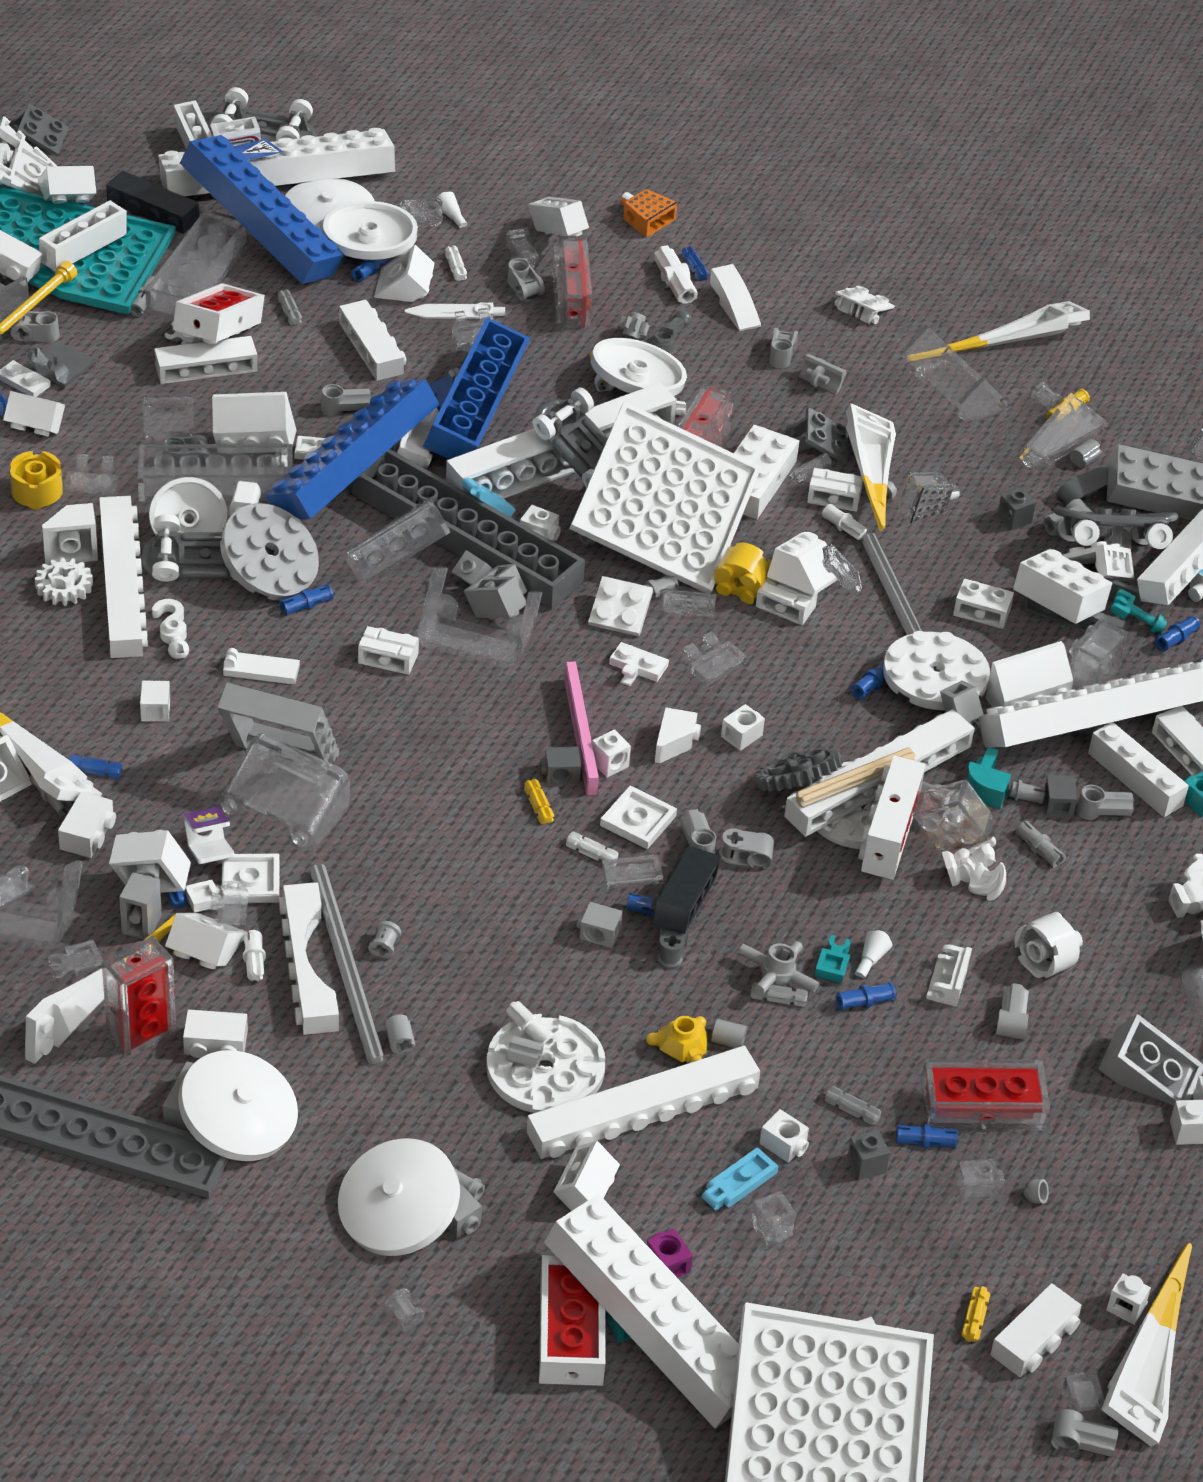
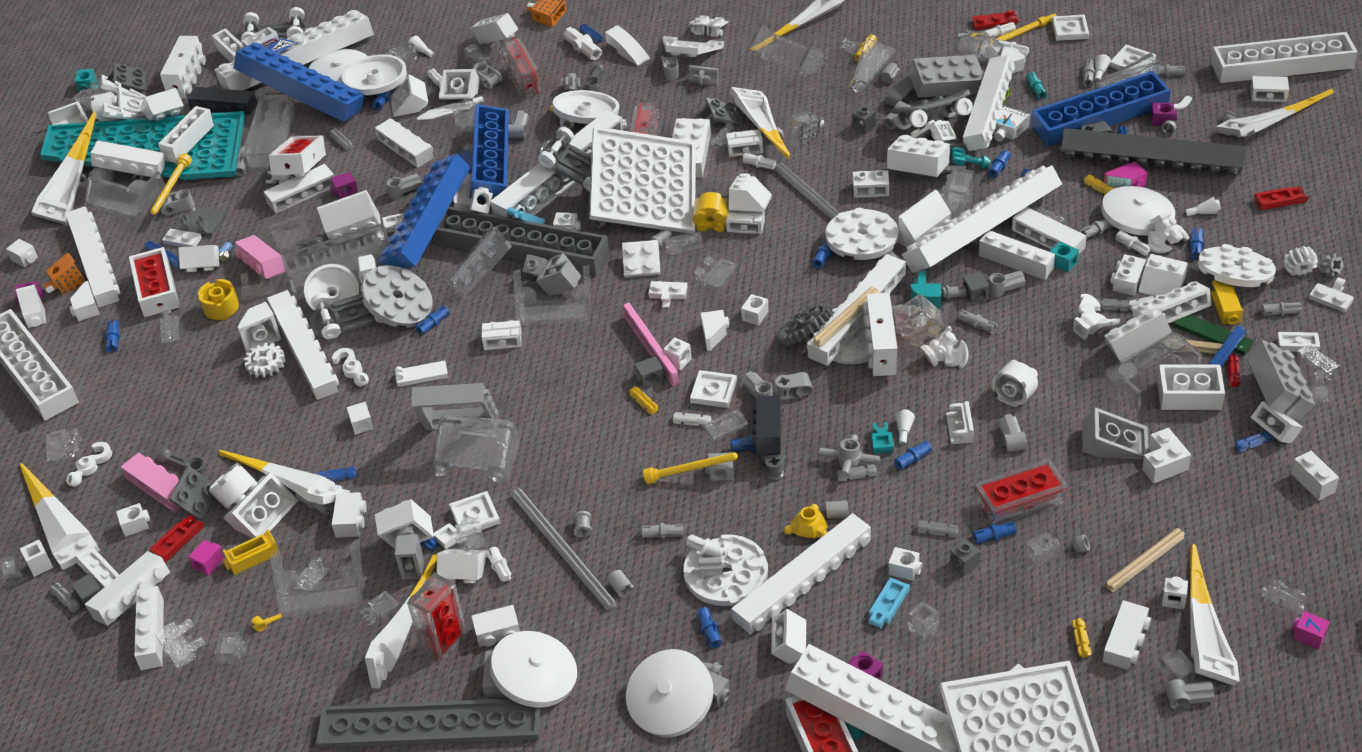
camera: 10 degrees left, 0 degrees up
(69, 417) = (224, 255): none -> arm
(112, 438) = (259, 256): none -> bright pink brick
(118, 137) = (183, 65): none -> white brick
(213, 845) = (439, 500): white piece -> none
(265, 374) = (343, 185): none -> magenta brick
(316, 1000) = (556, 581): white arch -> none
(425, 461) = (474, 206): none -> white brick
(479, 280) = (459, 84): none -> white slope
(485, 984) = (662, 531): none -> light grey pin
(490, 1131) = (709, 627): none -> blue pin
(504, 905) = (652, 475): none -> yellow piece
(536, 367) = (518, 128): none -> light grey piece
(820, 330) = (690, 48): none -> white wing
(845, 572) = (774, 191): clear plate -> none
(963, 699) = (889, 245): light grey brick -> none
(1112, 1241) = (1144, 560): none -> tan axle

